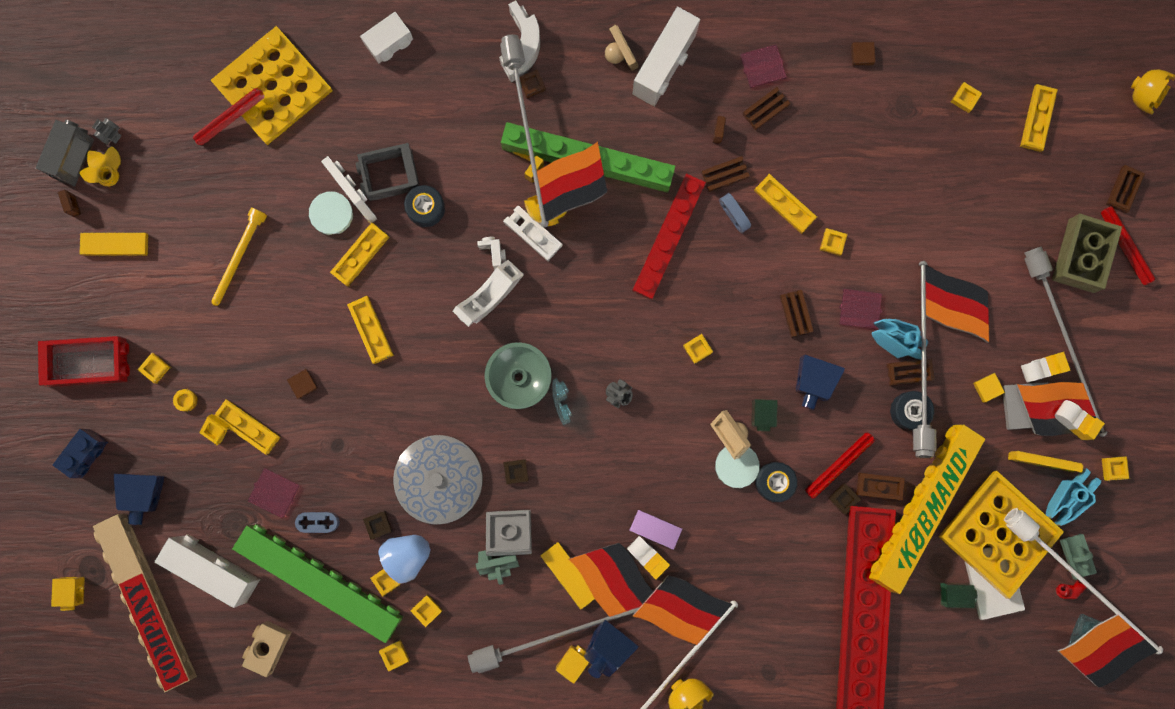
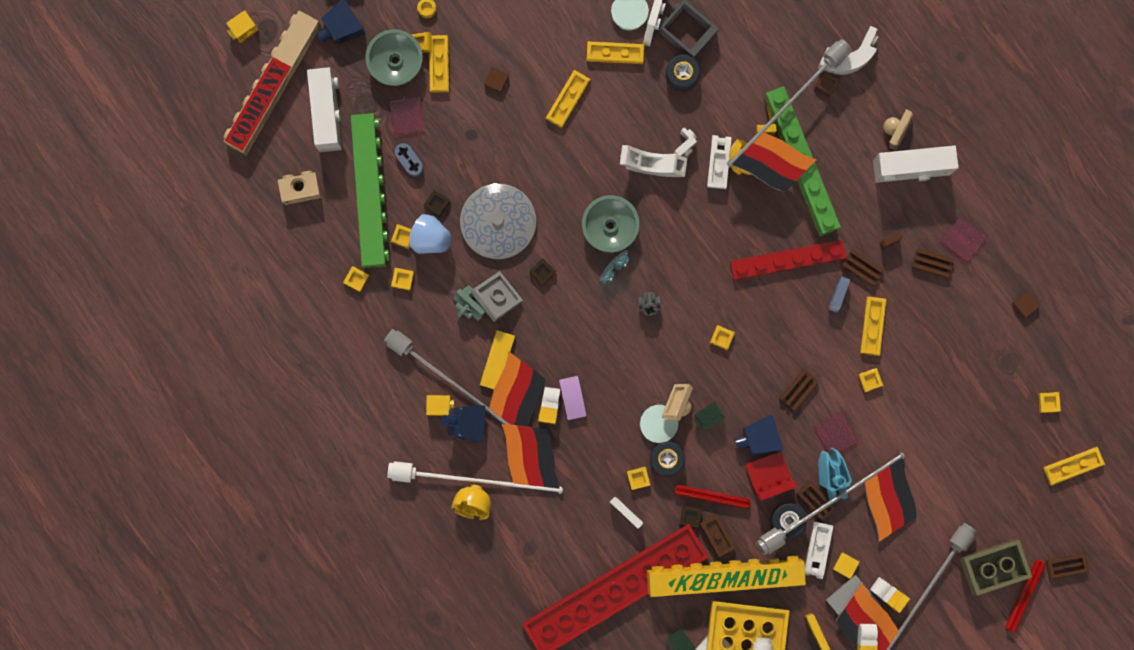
camera: 55 degrees right, 0 degrees up
(194, 461) = (392, 45): none -> sand green dish
(774, 521) = (638, 478): none -> yellow tile
(799, 557) = (626, 512): none -> white tile
(860, 398) = (770, 476): none -> red bracket
(957, 401) = (818, 549): none -> white plate

